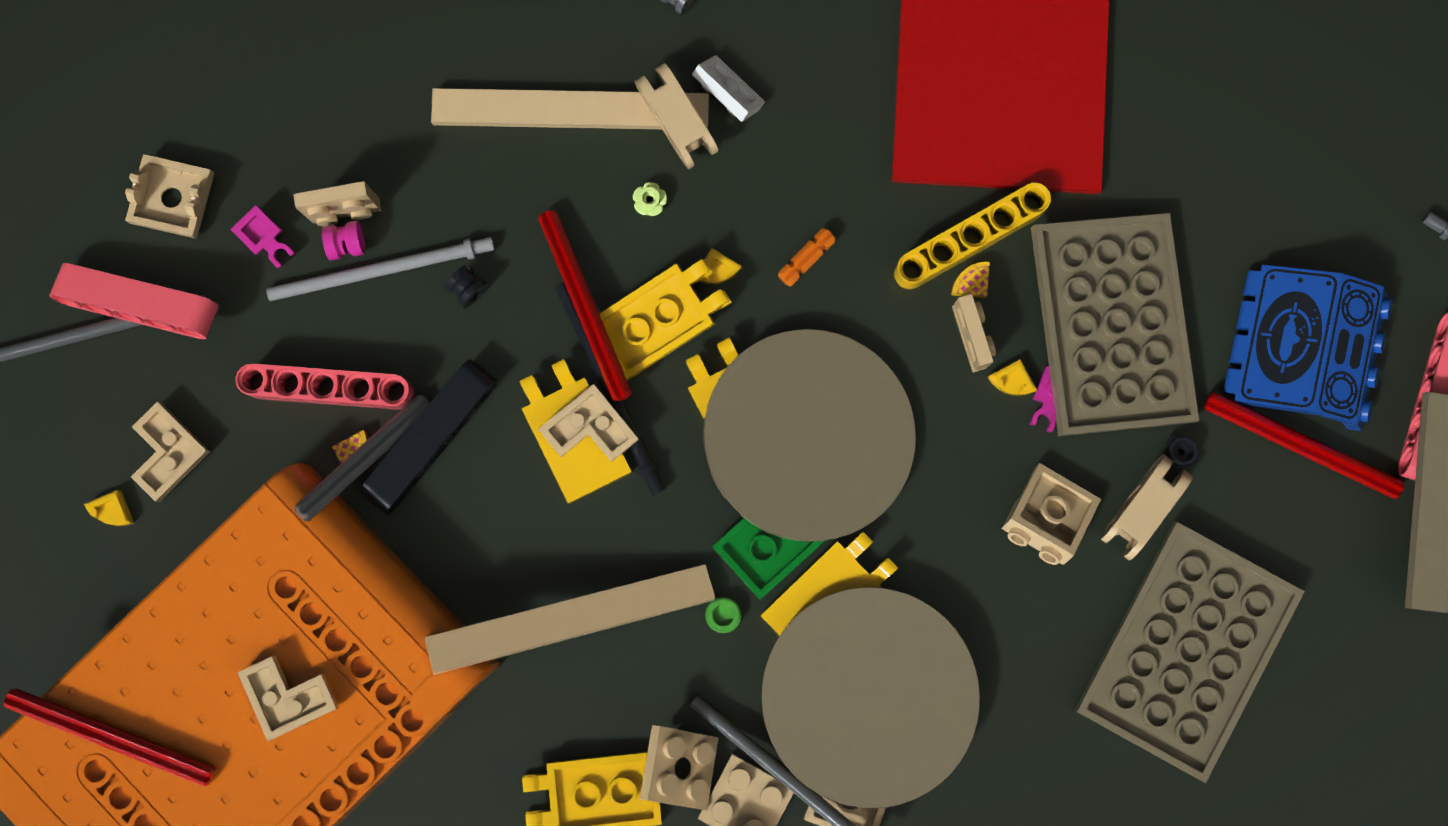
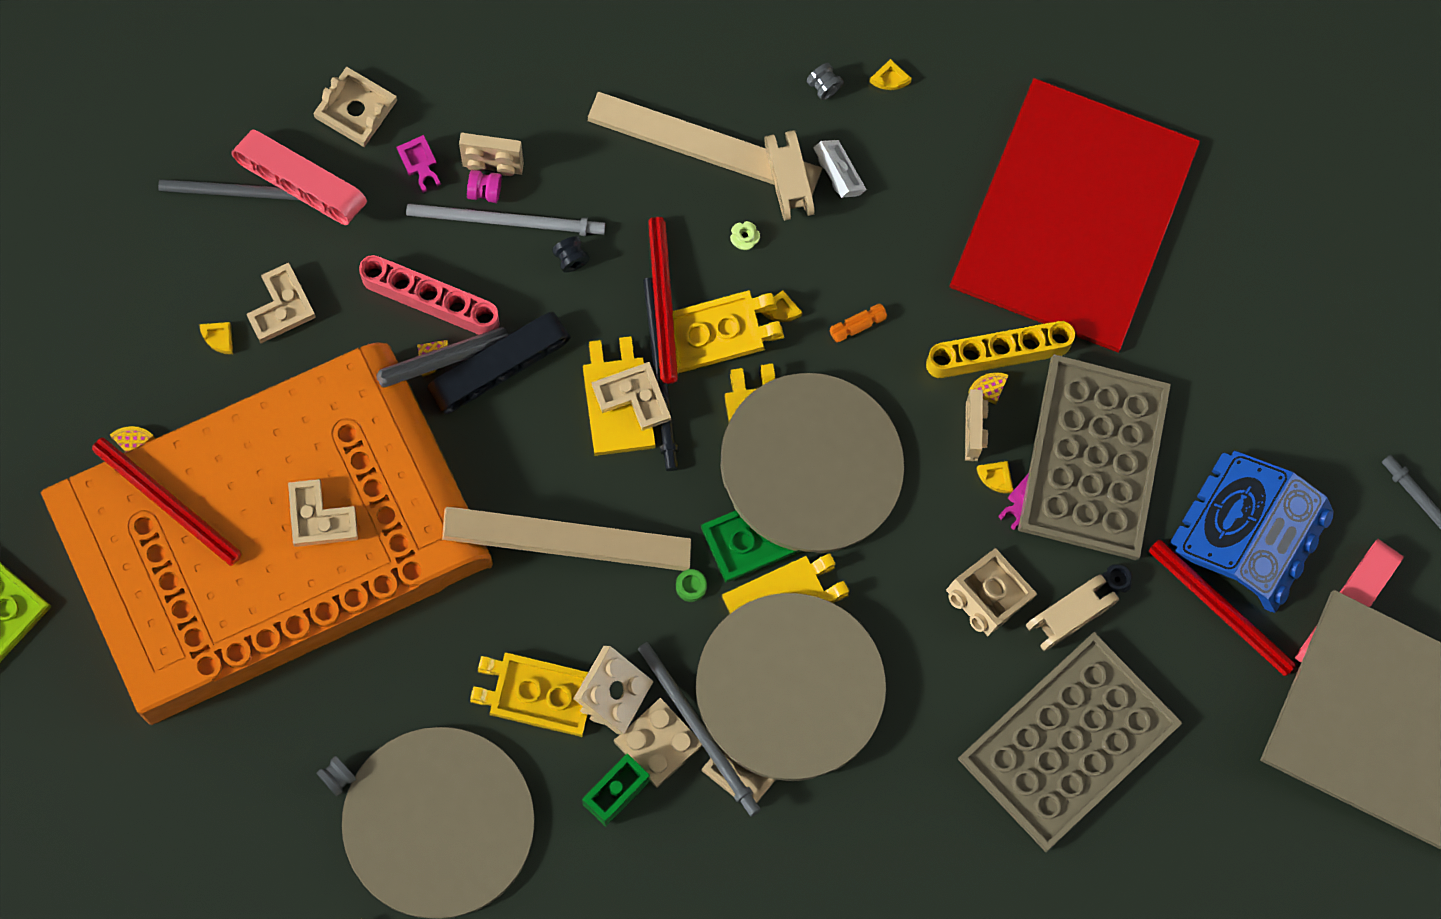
camera: 10 degrees right, 10 degrees down
(56, 659) = (131, 437): none -> yellow tile

